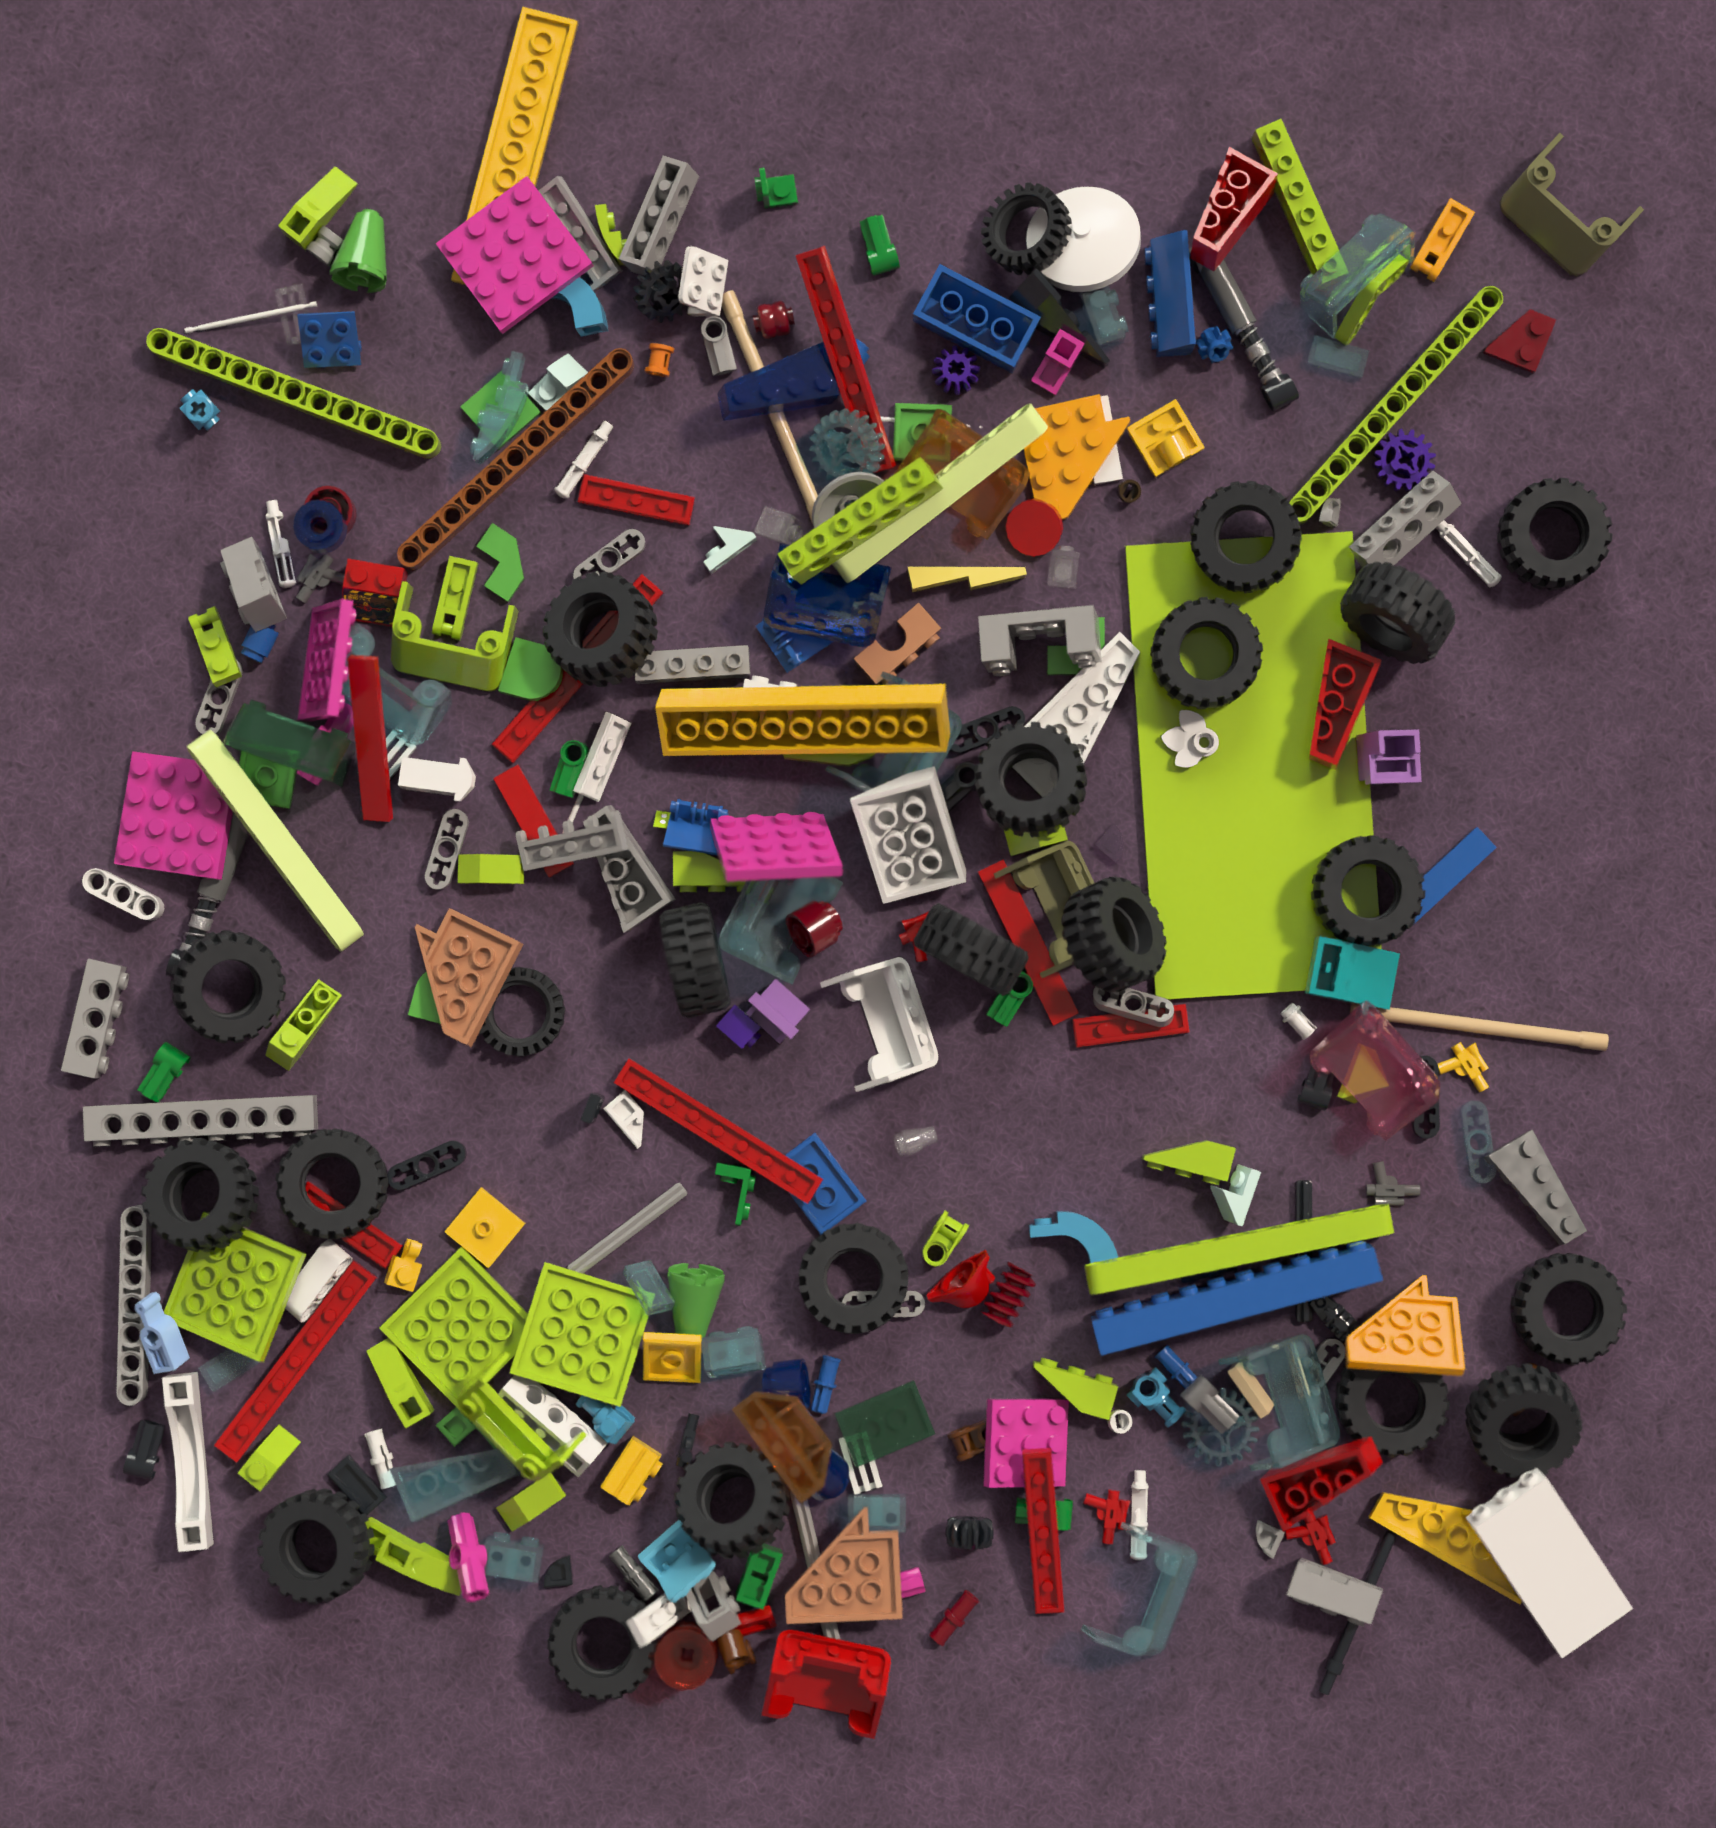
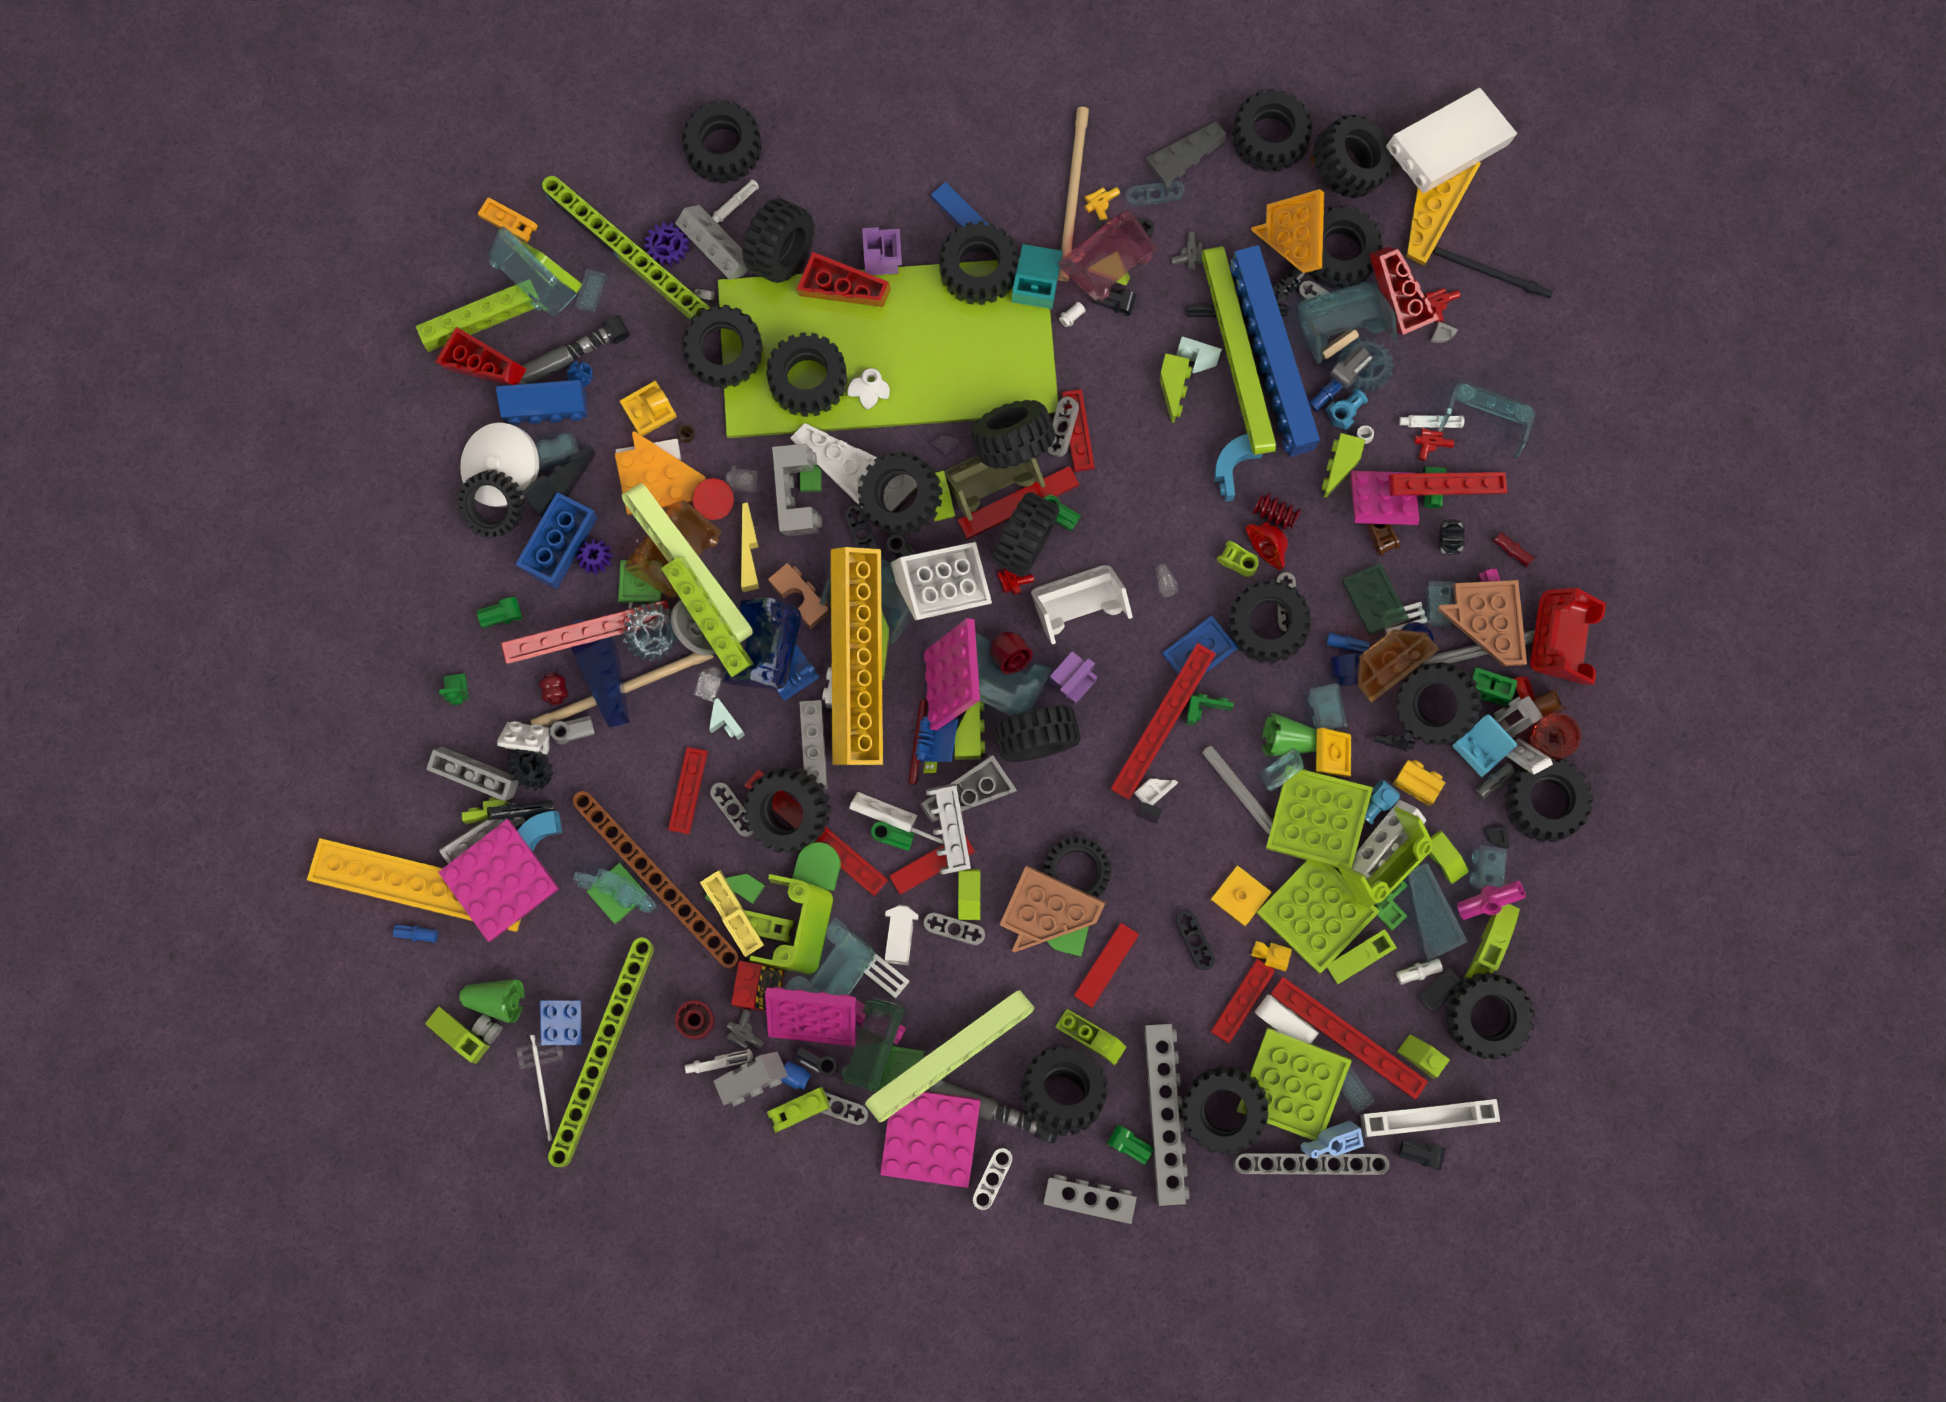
camera: 90 degrees left, 10 degrees down
(199, 409) = (612, 1125): dark azure connector -> none
(279, 667) = (815, 1059): none -> black piece
(293, 1175) = (1218, 979): black tyre -> none
(304, 526) = (695, 1018): clear blue piece -> none
(370, 738) = (871, 982): red tile -> none
(396, 1047) = (1106, 965): none -> red tile
(452, 150) = (415, 933): none -> blue axle
(469, 559) = (732, 913): none -> light yellow slope
(560, 378) = (598, 850): light aqua slope -> none
(583, 460) = (657, 830): white piece -> none
(602, 247) = (519, 810): none -> black pin
(659, 359) = (581, 773): orange bush -> none
(665, 799) = (914, 767): none -> dark red bar
(739, 1027) = (1086, 707): dark purple brick -> none
(1058, 362) = (590, 484): dark pink slope -> none
(1334, 1592) = (1480, 284): light grey wedge -> none
(1523, 341) = (582, 166): dark red wing -> none
(1552, 224) = (497, 145): olive windscreen -> none

